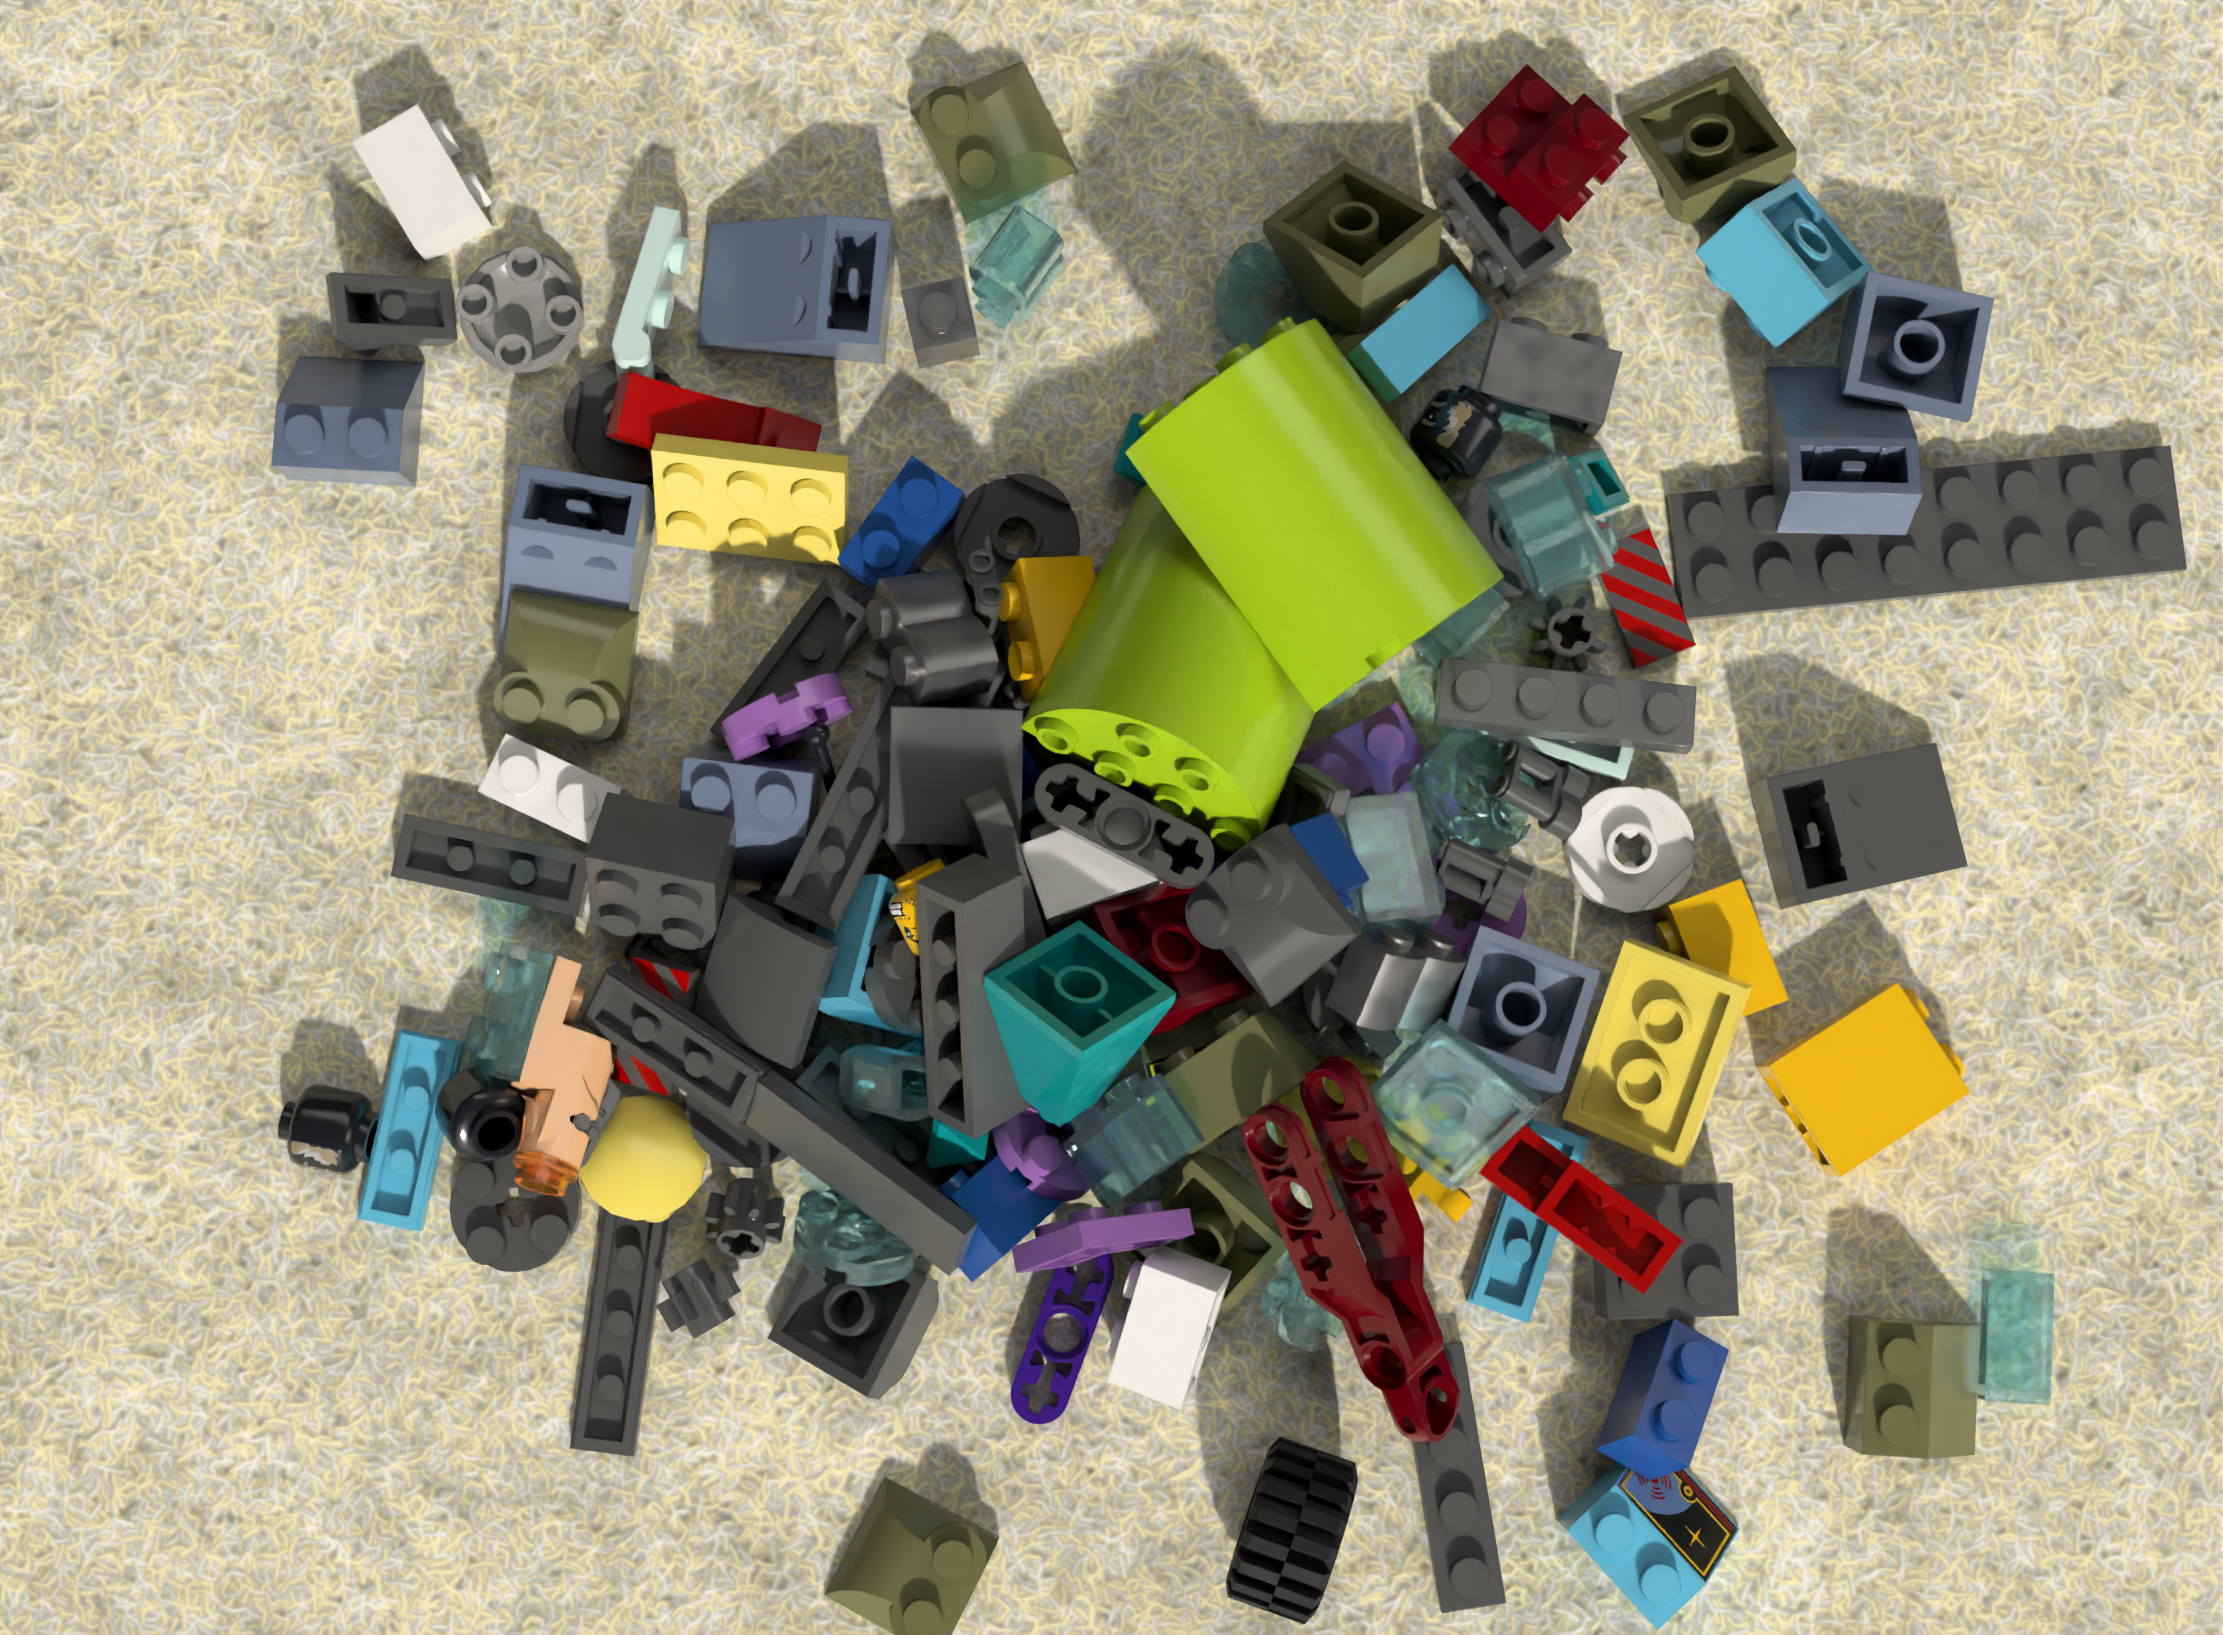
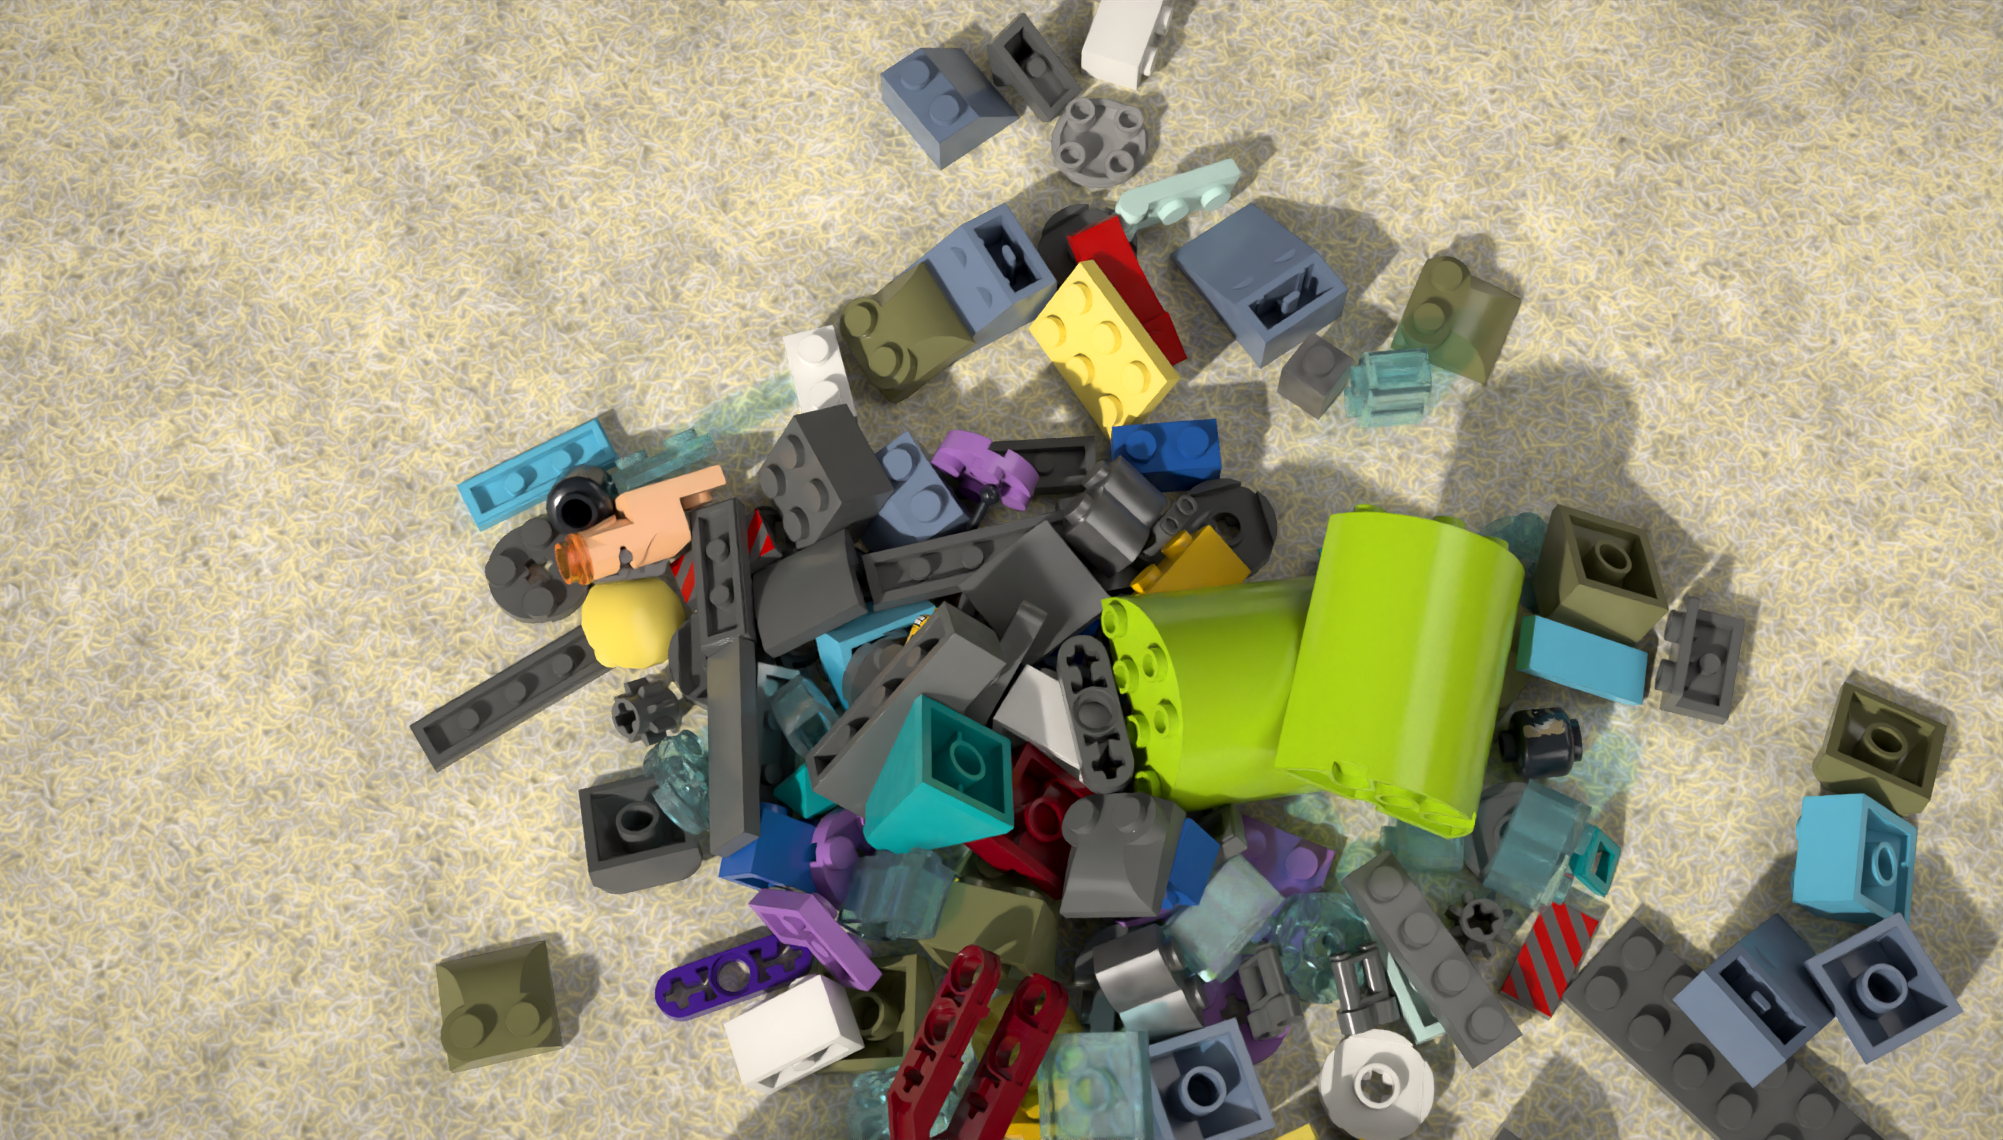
camera: 50 degrees right, 15 degrees down
(329, 1129) = (499, 424): black head -> none
(491, 865) = (741, 386): dark grey plate -> none
(698, 1298) = (569, 724): dark grey gear -> none
(1541, 148) = (1772, 644): dark red plate -> none
(1550, 375) = (1634, 771): flat silver brick -> none

